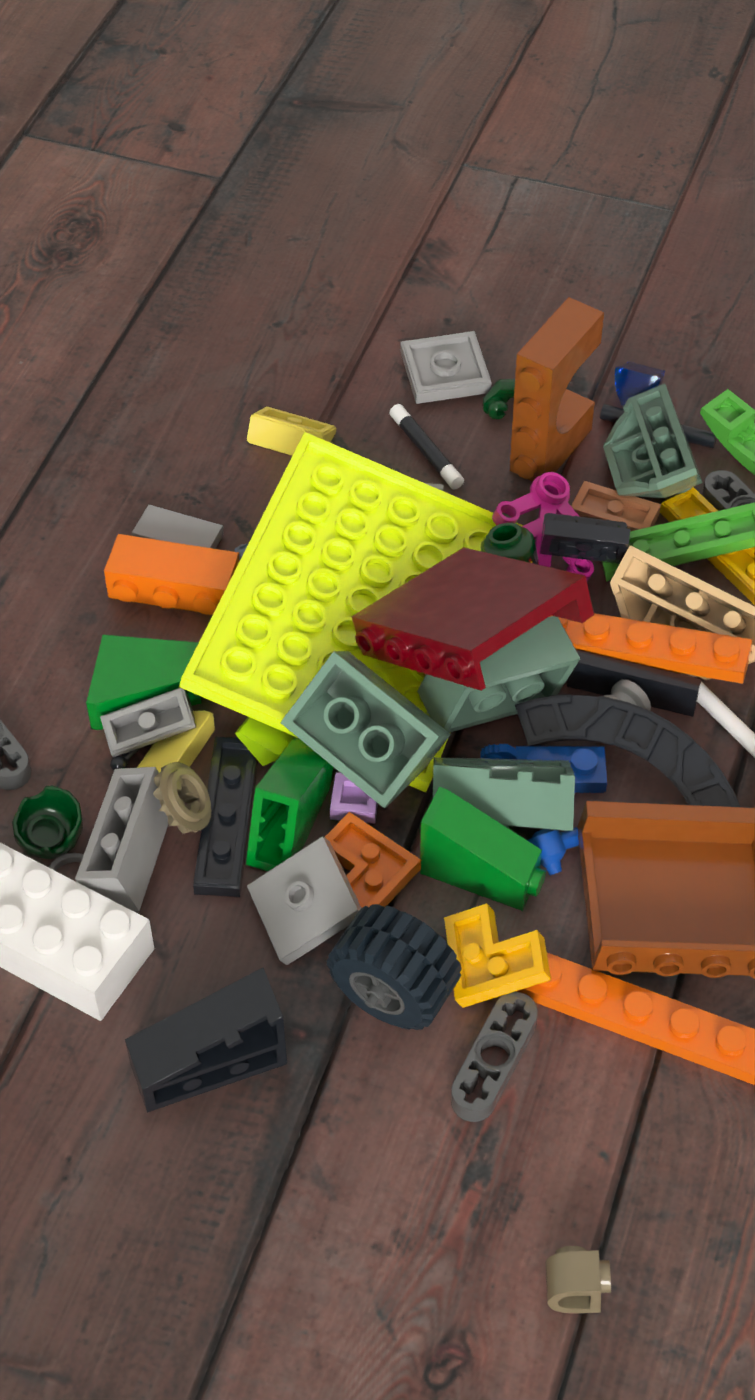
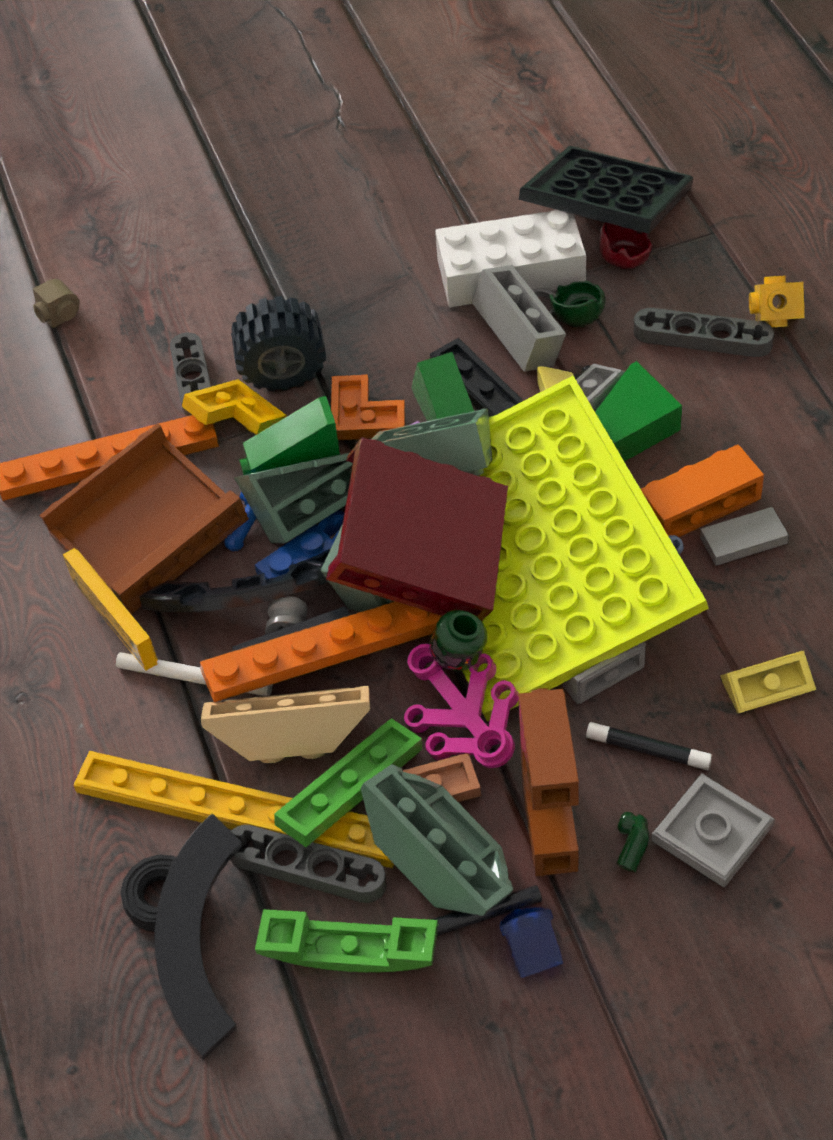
camera: 145 degrees right, 0 degrees up
(182, 785) = (498, 361): dark tan gear -> none
(210, 1043) = (350, 266): black wedge -> none
(304, 900) = (375, 364): light grey plate -> none
(584, 538) = (416, 699): black bracket -> none

